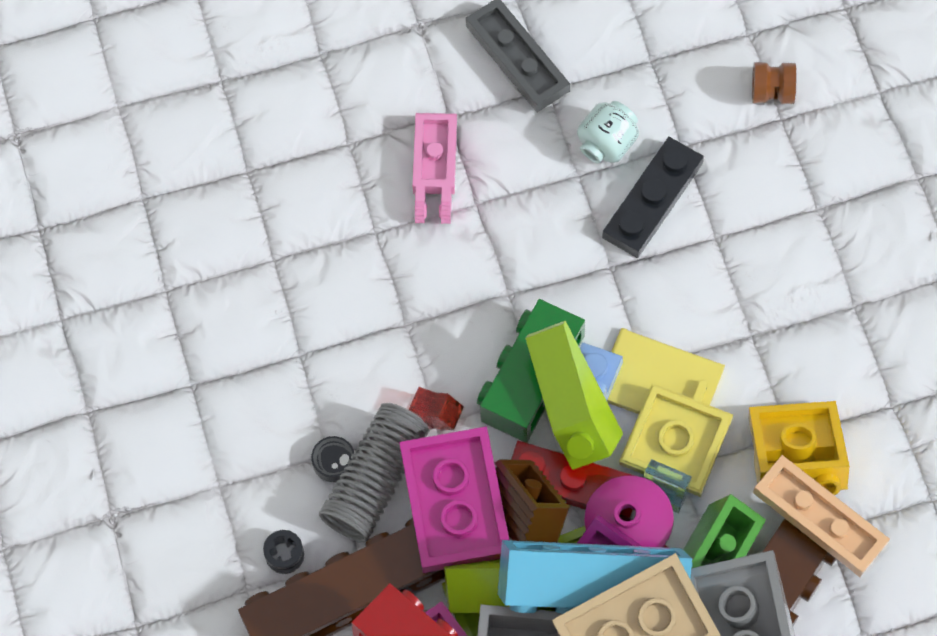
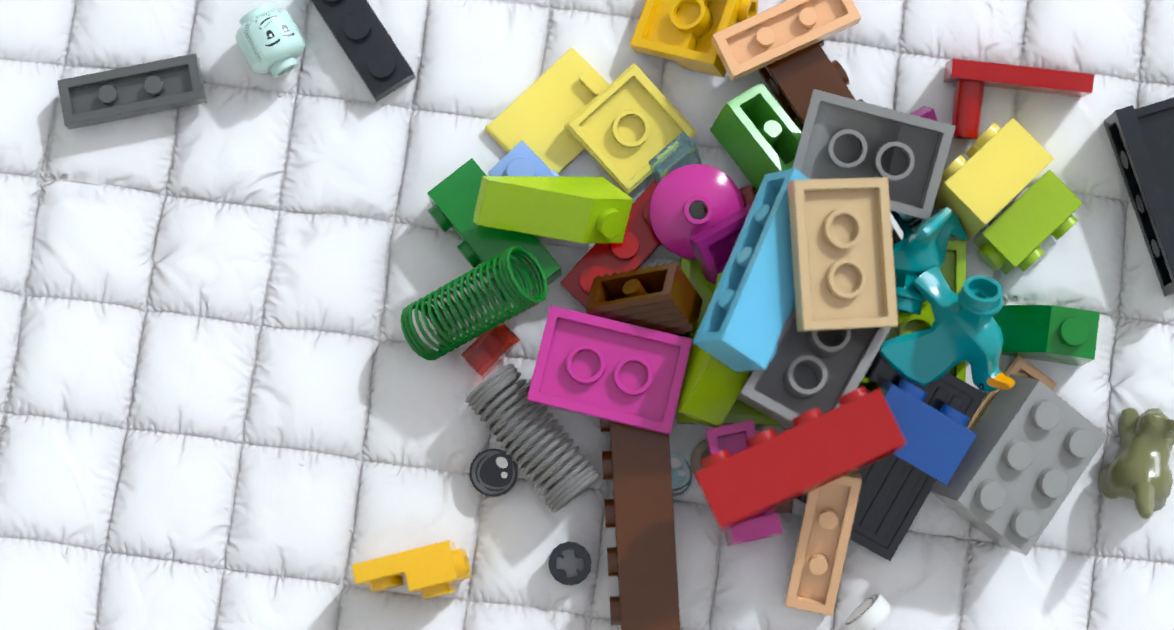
camera: 70 degrees left, 15 degrees up
(226, 430) = (426, 570): none -> yellow plate
(434, 162) = (215, 230): bright pink hinge -> none
(481, 378) = (507, 283): none -> green piece

